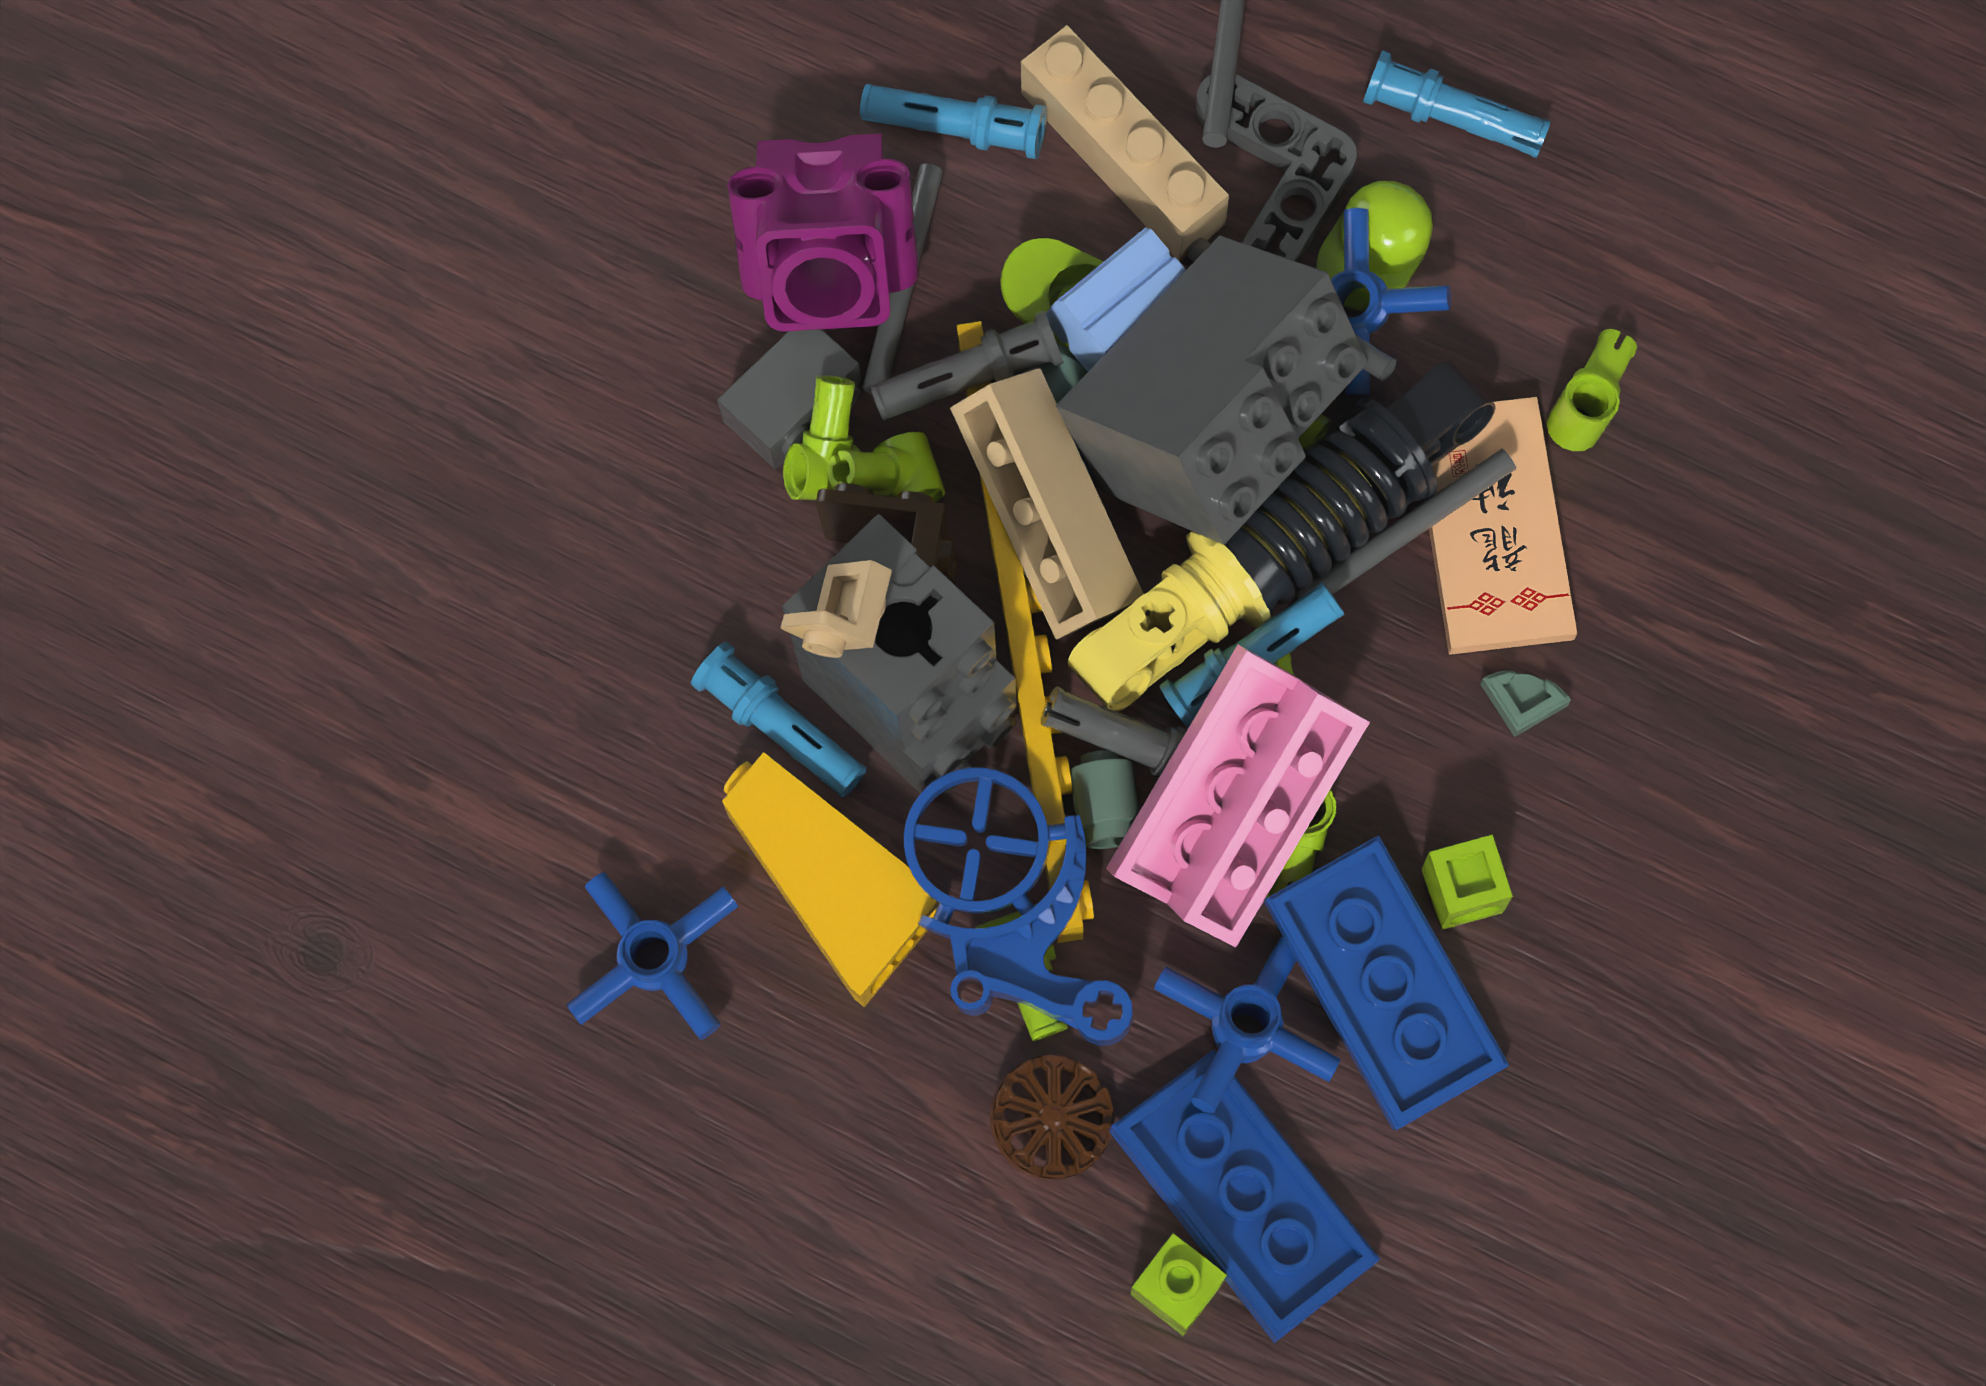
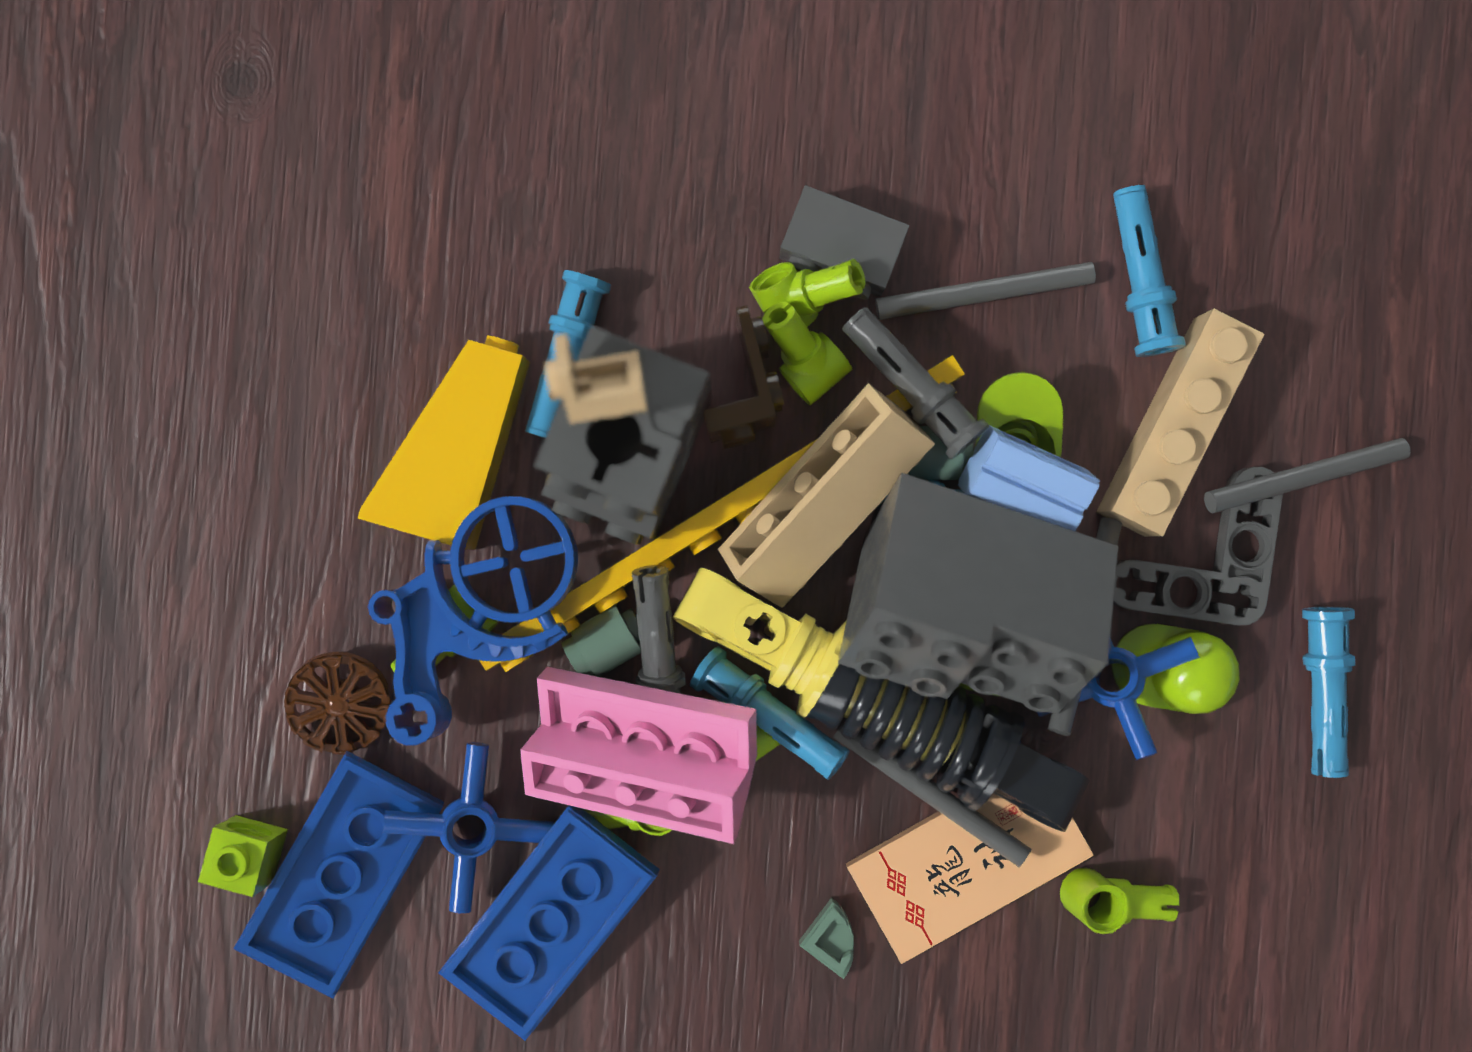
camera: 60 degrees right, 15 degrees up
(669, 975) = (312, 330): blue bar -> none
(824, 232) = (985, 208): magenta piece -> none
(1466, 882) = (649, 959): lime brick -> none

